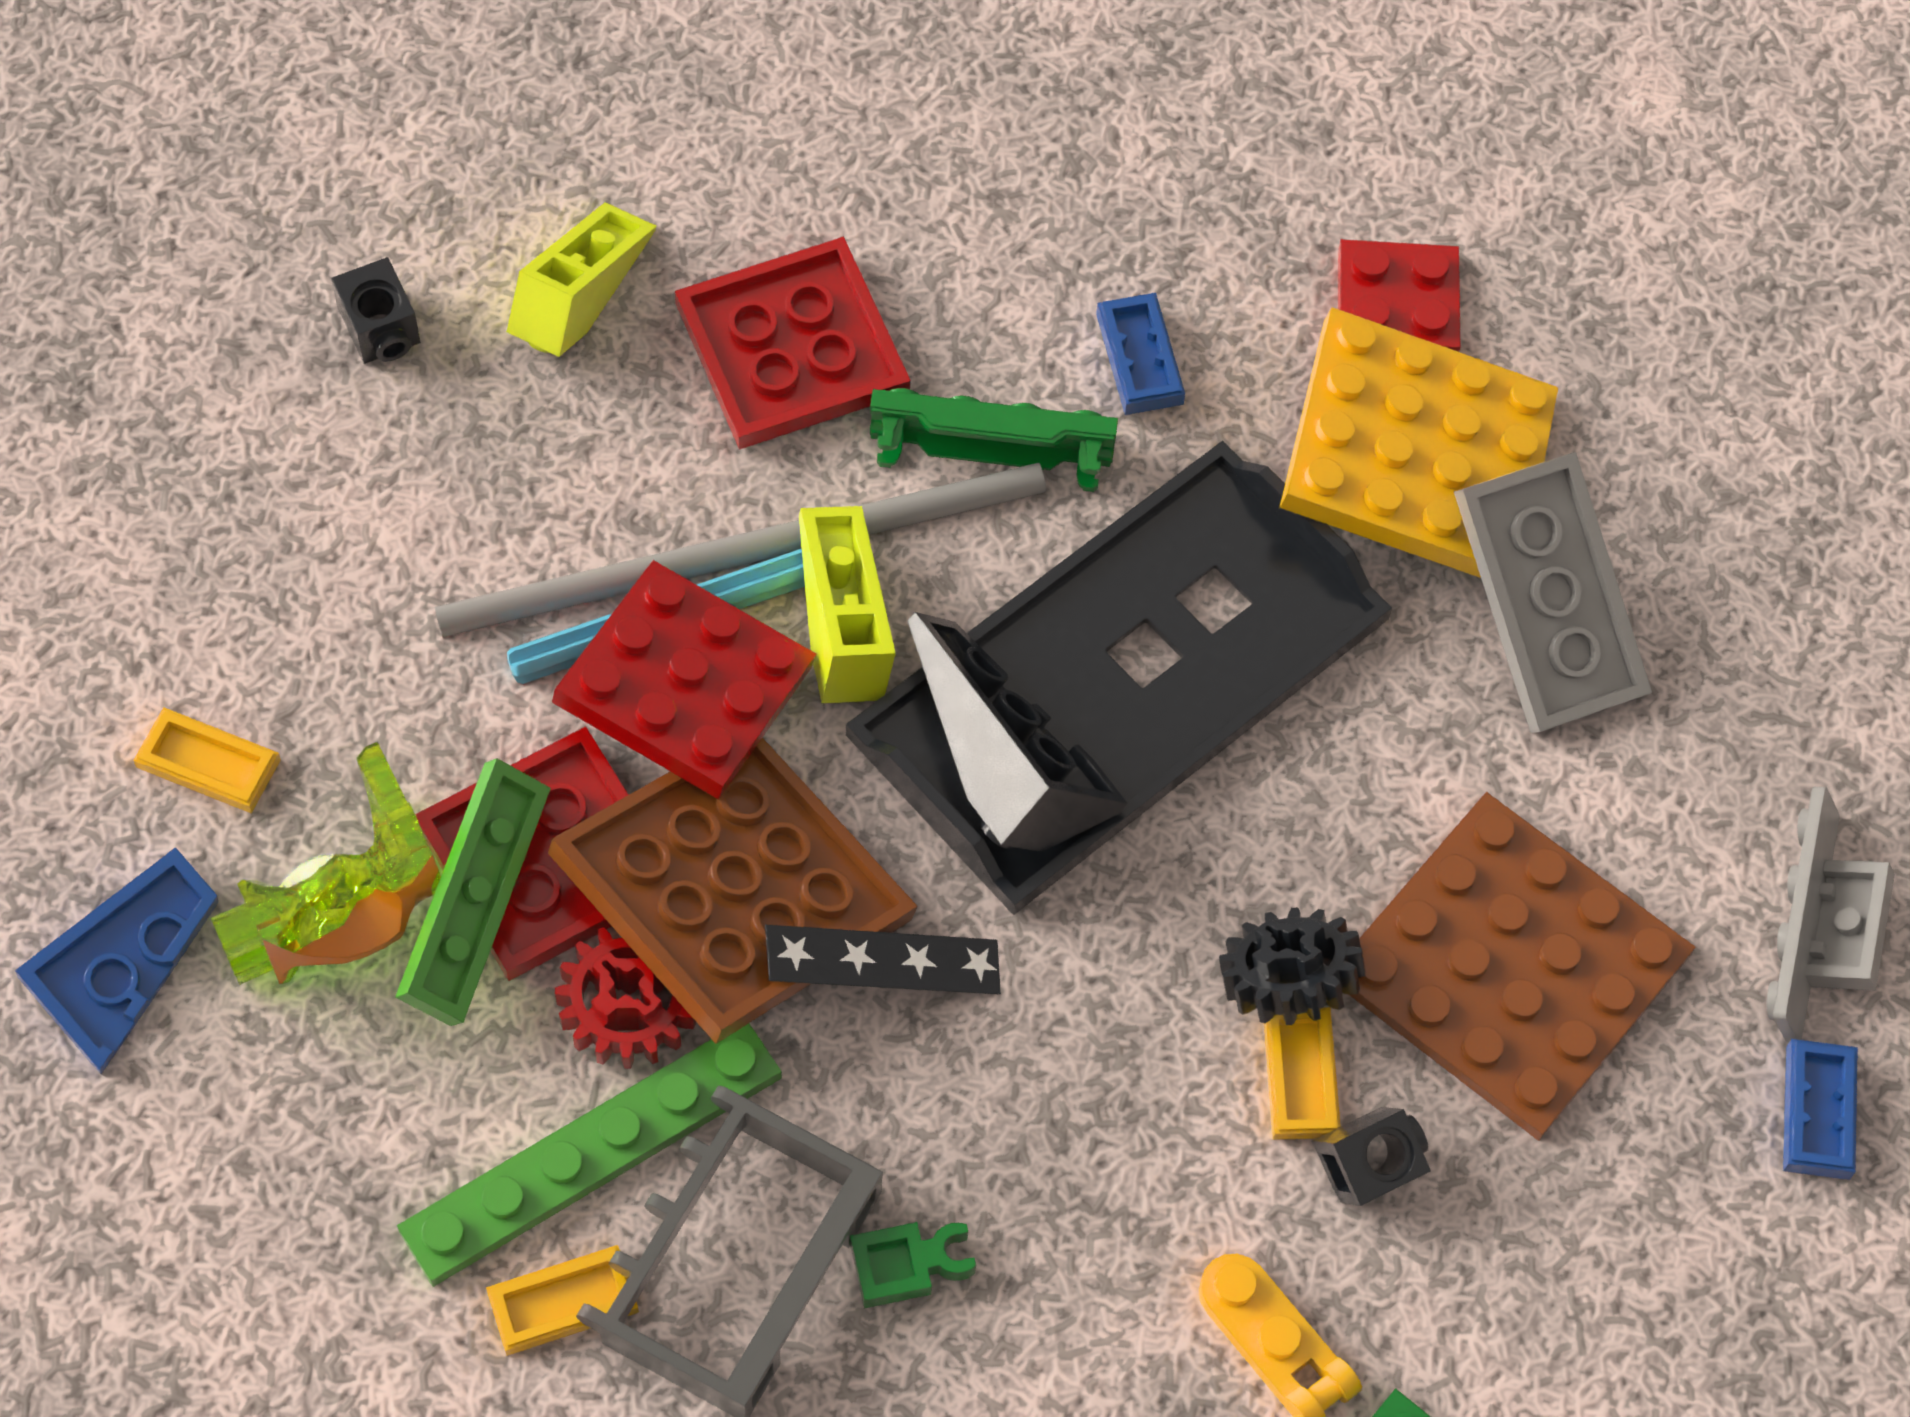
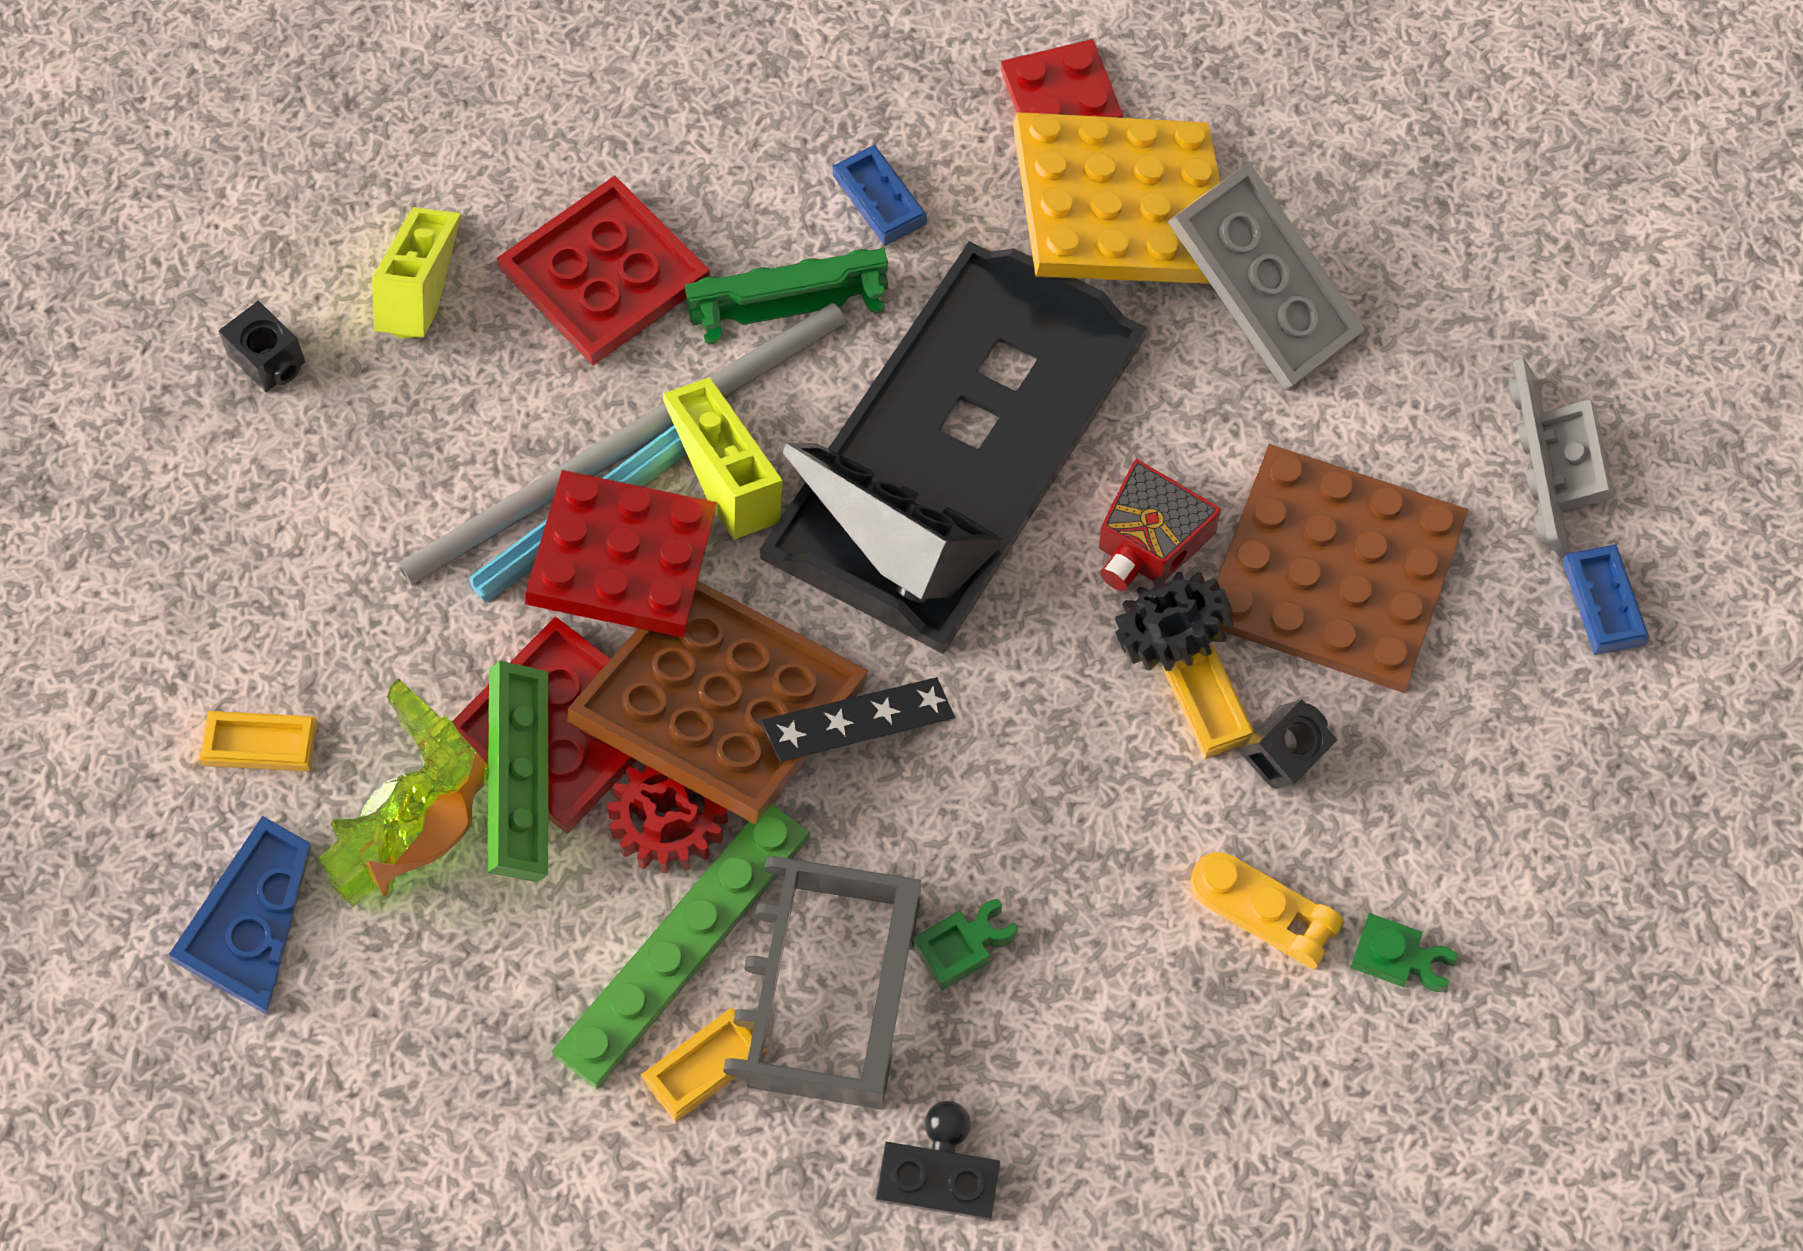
camera: 15 degrees left, 0 degrees up
(1310, 847) = (1153, 527): none -> torso

